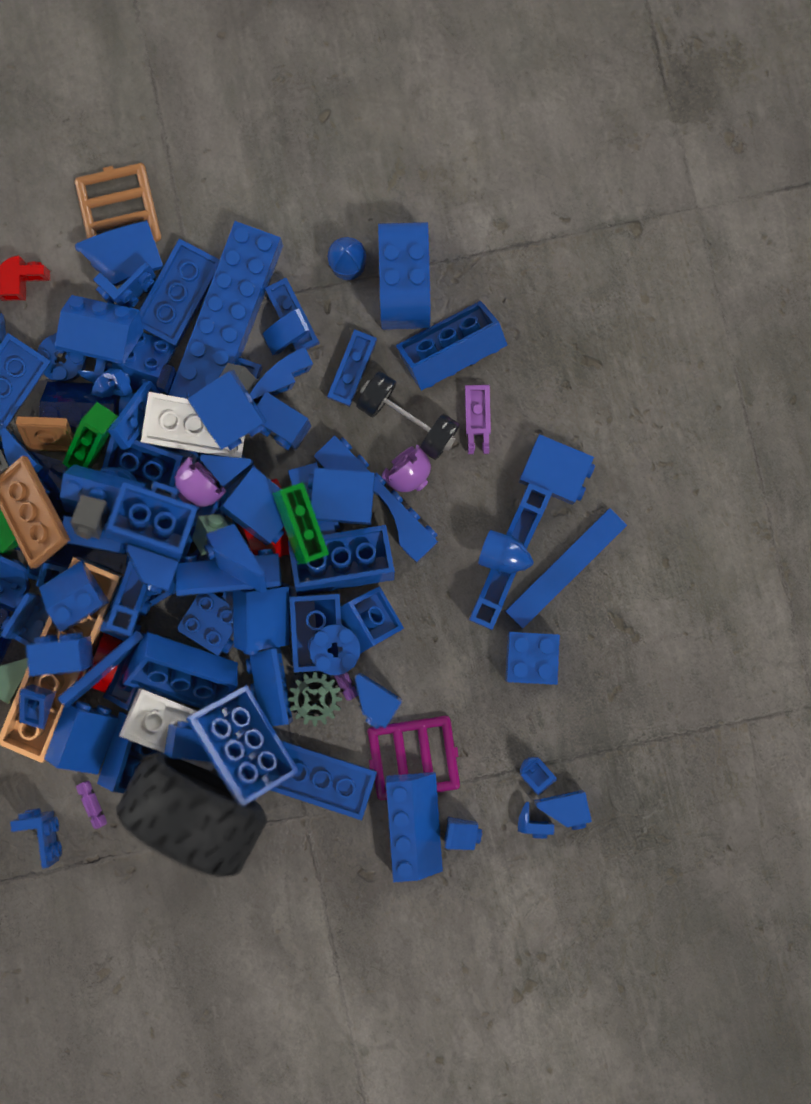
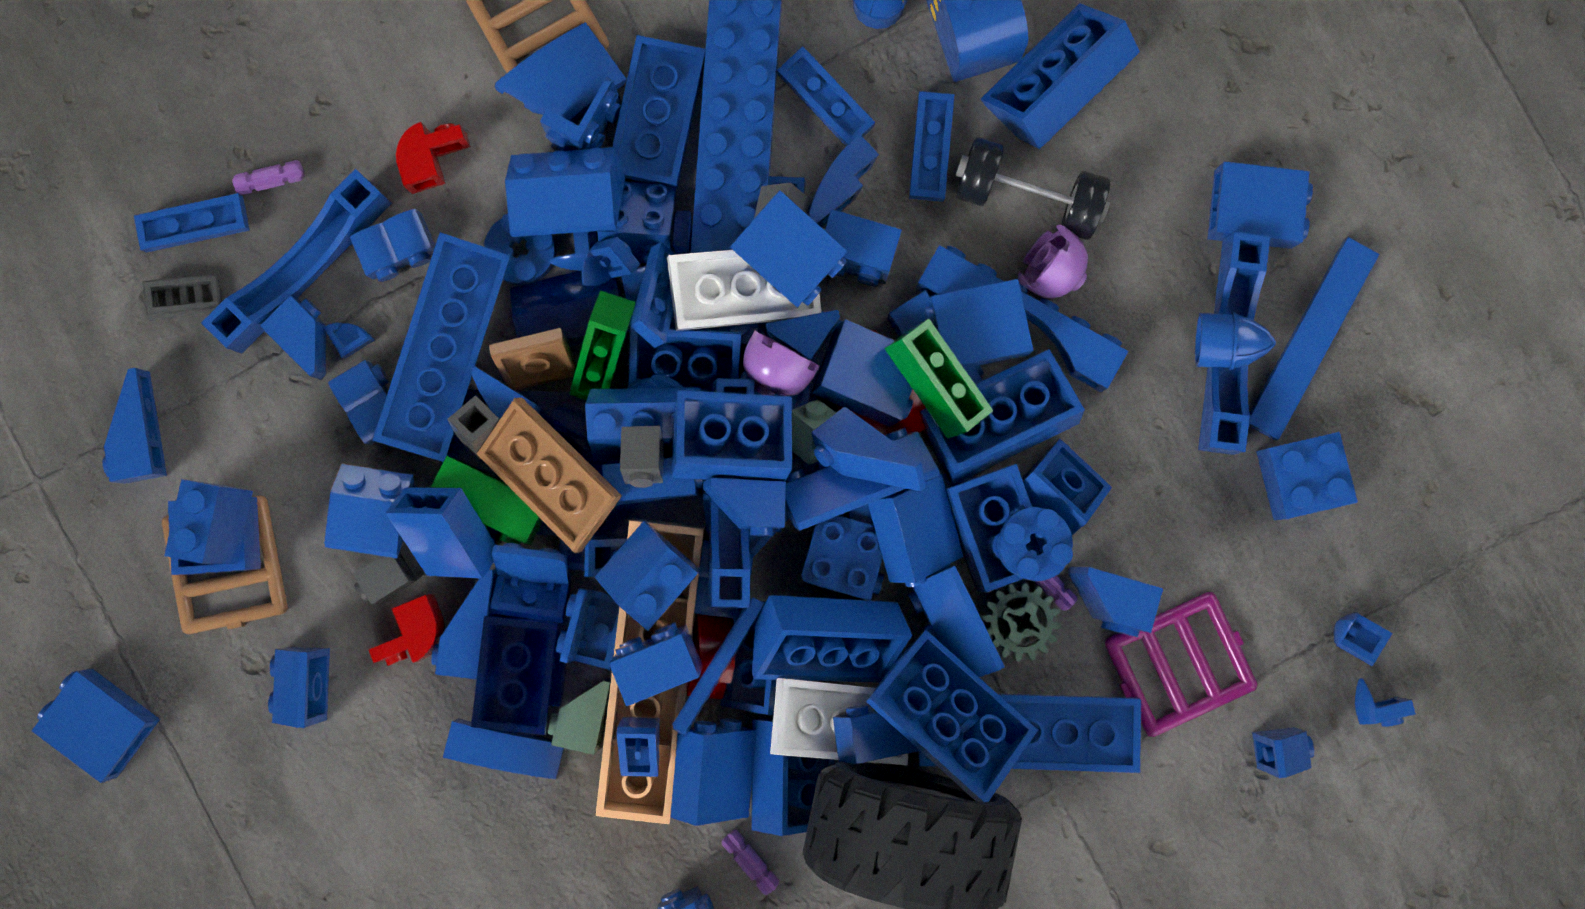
camera: 15 degrees left, 0 degrees up
(285, 331) = (826, 120): blue slope -> none
(414, 826) = (1212, 760): blue slope -> none
(477, 415) = (1126, 163): medium lavender hinge -> none
(568, 809) = (1419, 671): blue slope -> none

